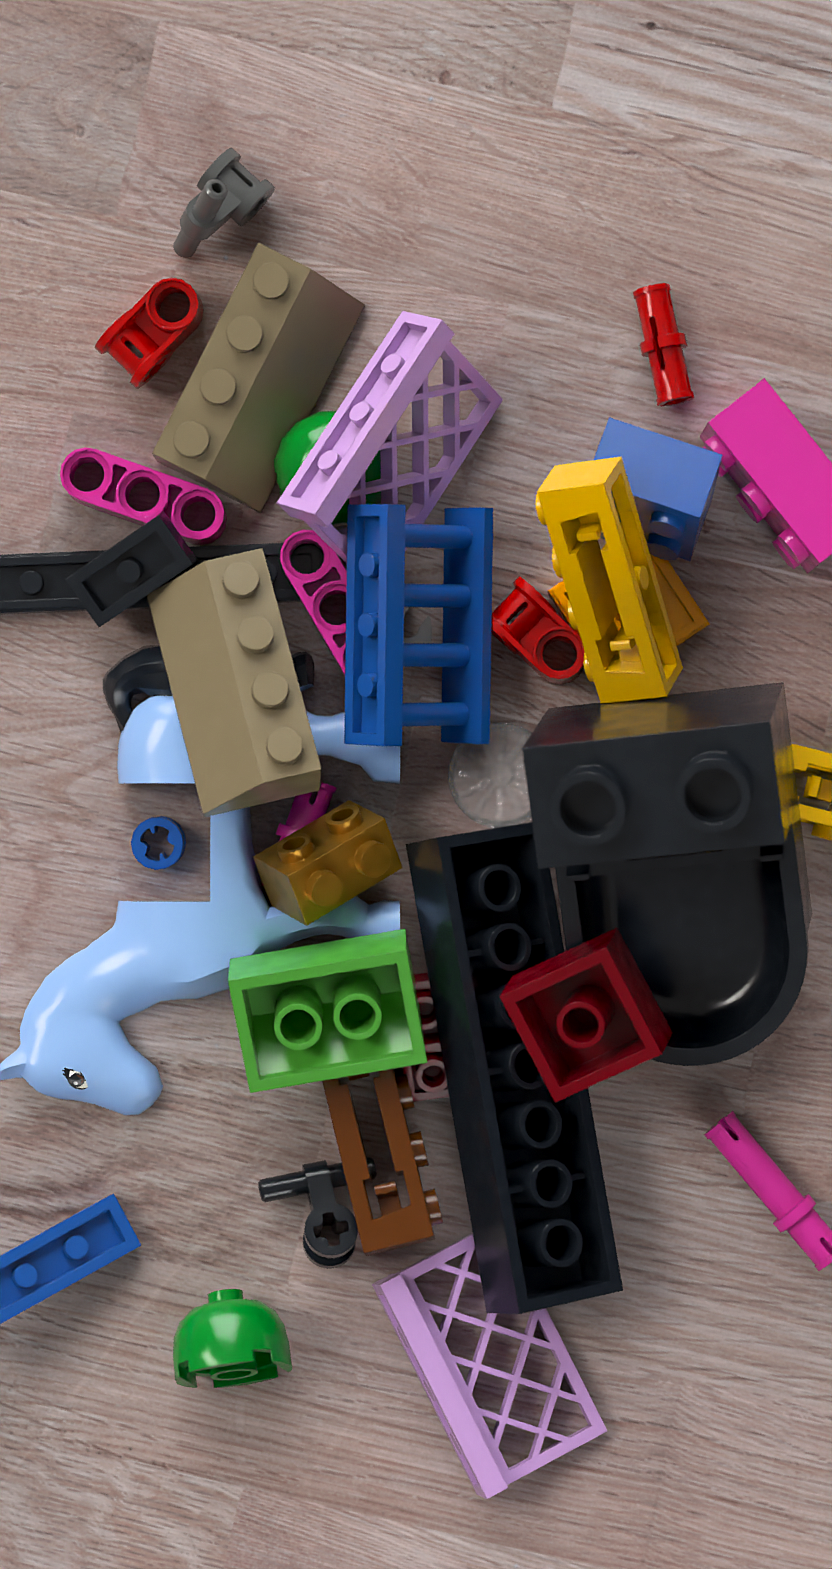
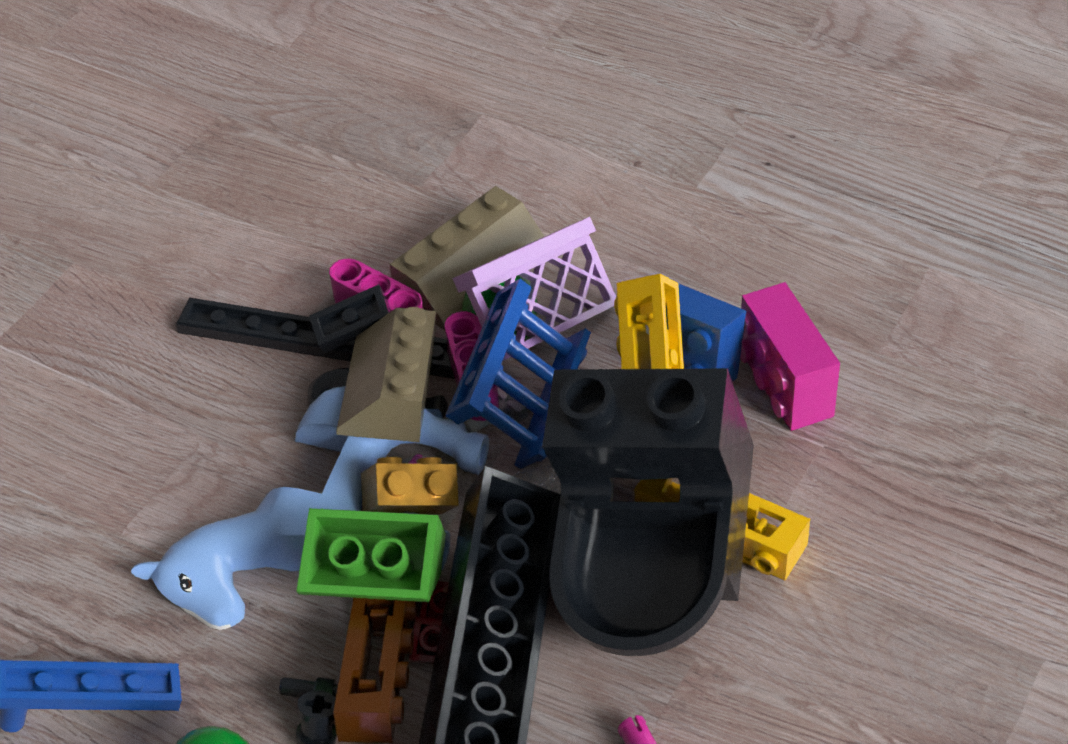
camera: 20 degrees right, 40 degrees down
(149, 332) = (416, 222): red piece -> none
(175, 837) = (302, 465): blue bush -> none
(225, 193) = (480, 173): dark grey piece -> none
(586, 1015) = (549, 579): dark red brick -> none
(663, 344) = (729, 282): red pin -> none

